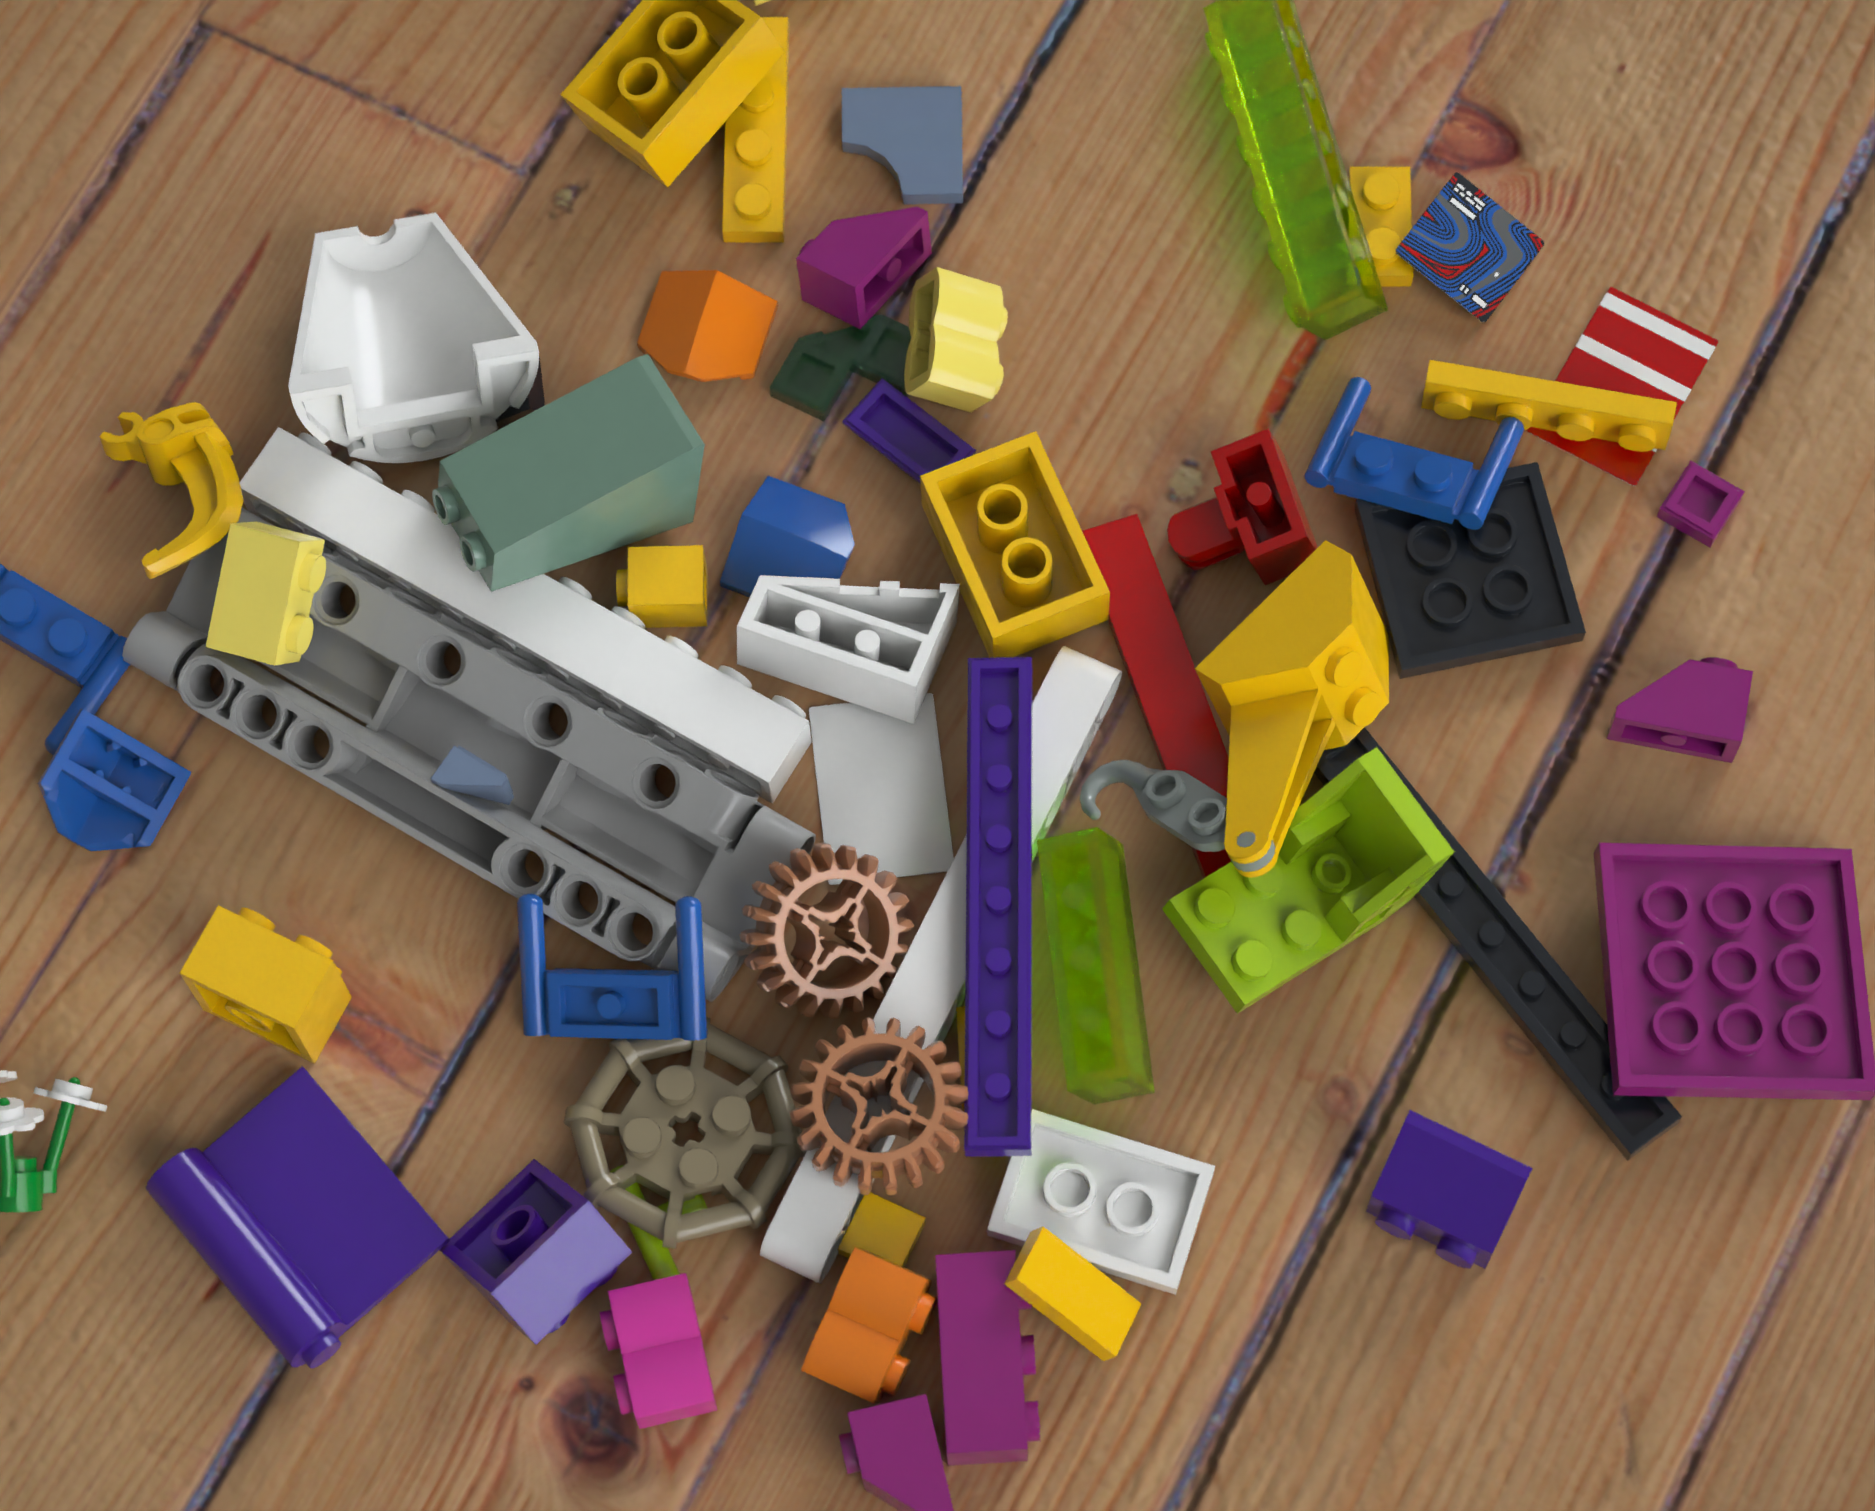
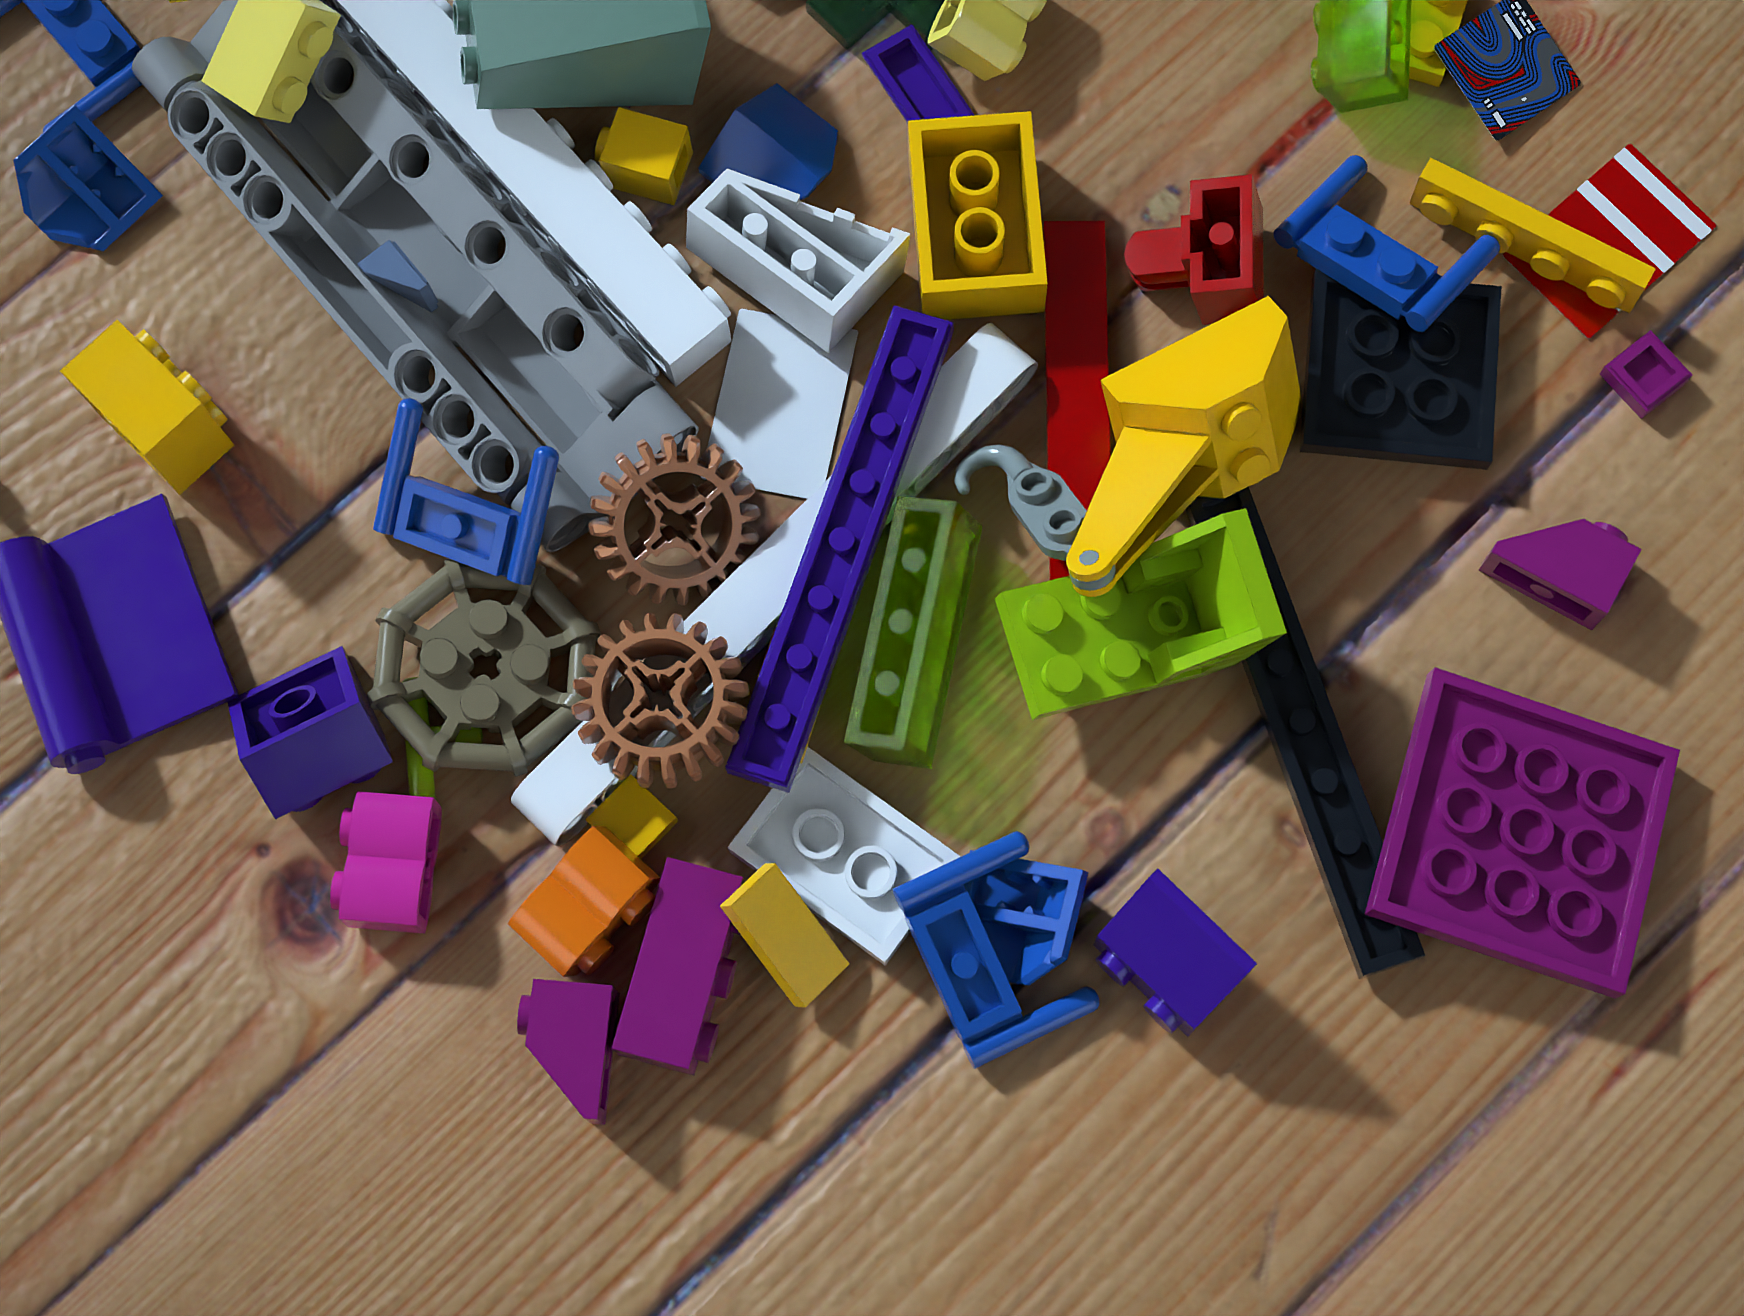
camera: 20 degrees right, 5 degrees up
(1254, 1265) = (966, 962): none -> blue plate
(1286, 1204) = (1029, 915): none -> blue slope

